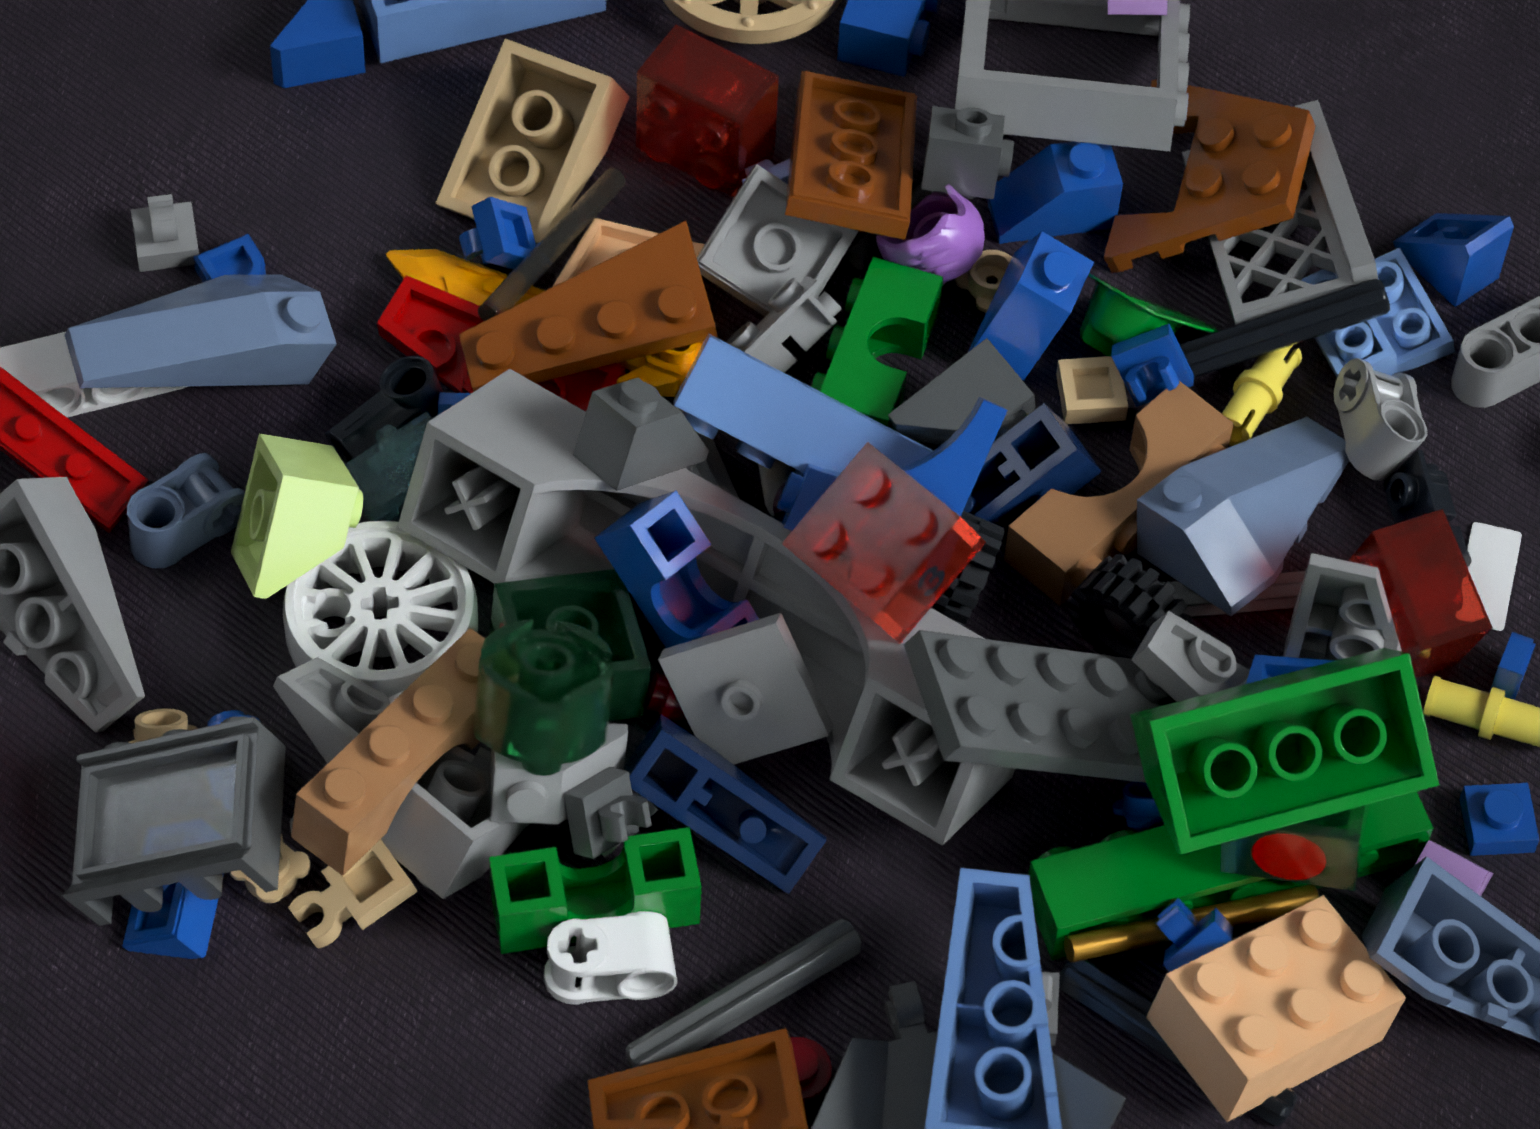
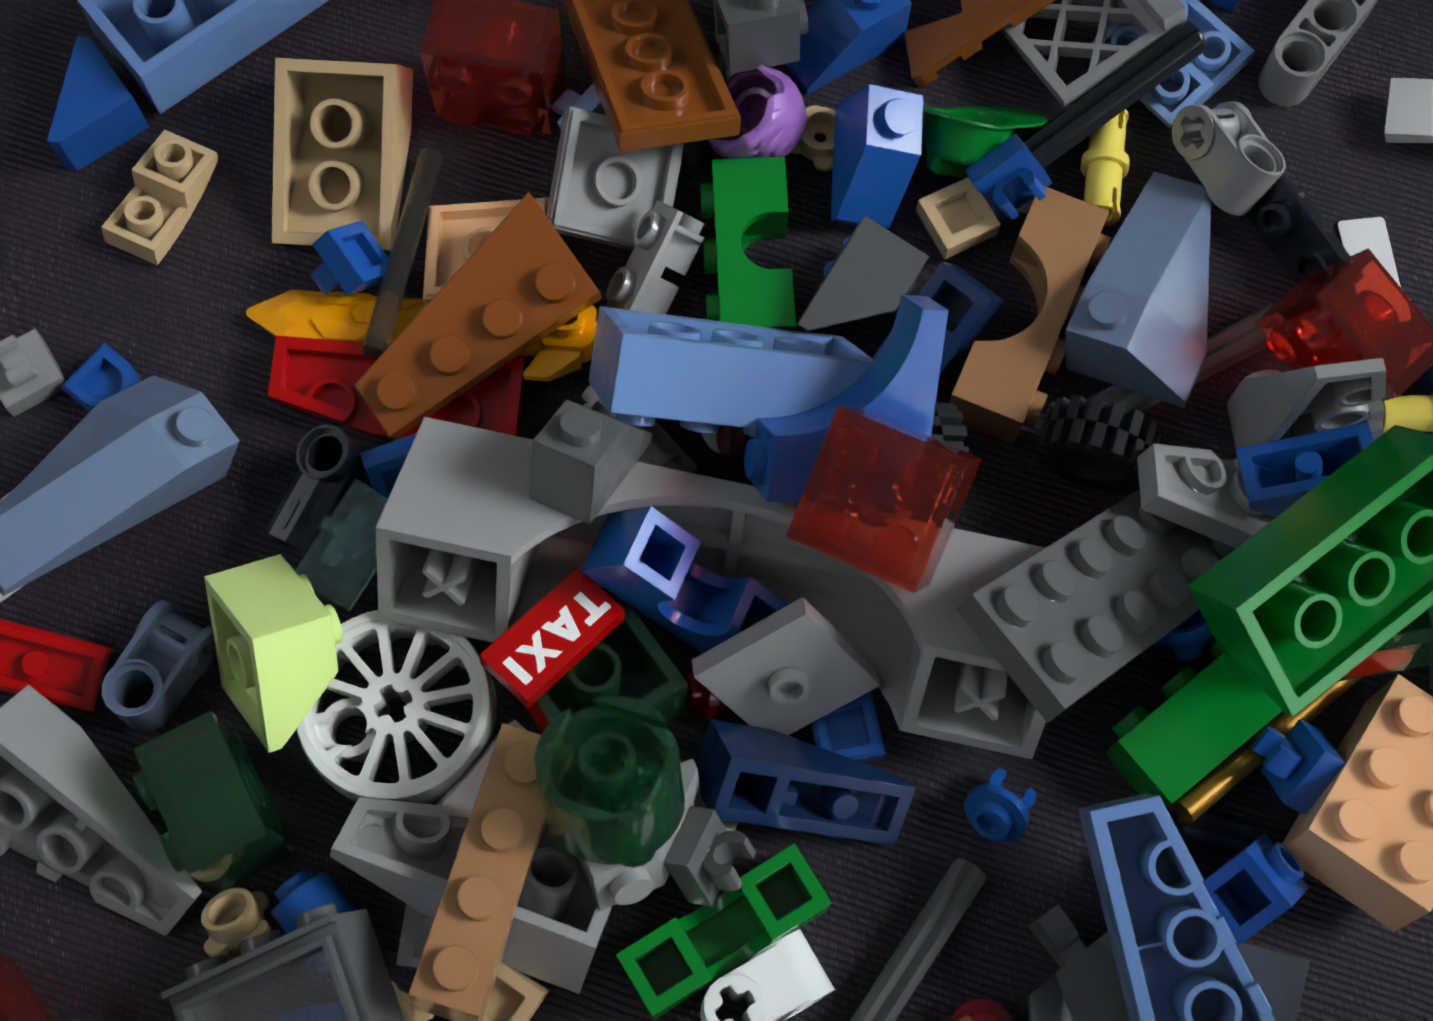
camera: 20 degrees left, 15 degrees up
(185, 623) = (210, 802): none -> clear green brick
(358, 129) = (165, 194): none -> tan slope
(546, 584) = (552, 637): none -> red tile
(791, 779) = (851, 731): none -> blue tile
(896, 892) = (997, 811): none -> blue plate
(1102, 1025) = (1256, 886): none -> blue brick

